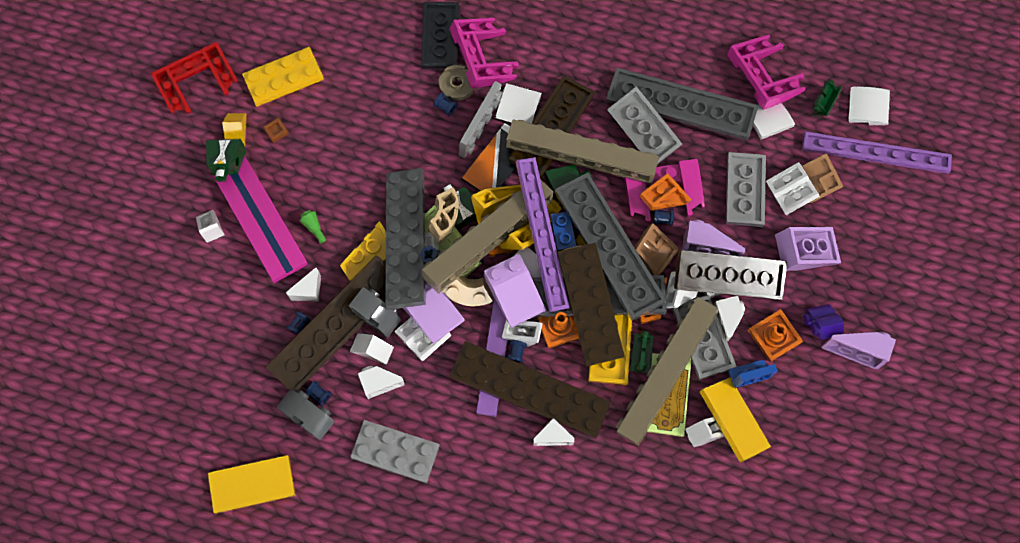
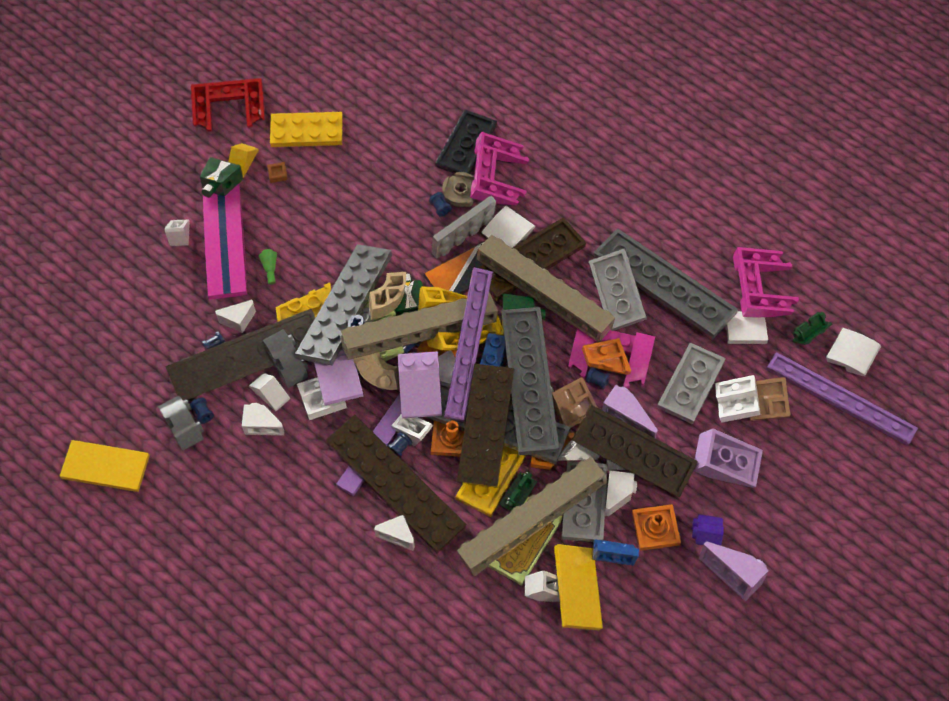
camera: 25 degrees right, 10 degrees down
(395, 451) = (246, 489): light grey plate -> none

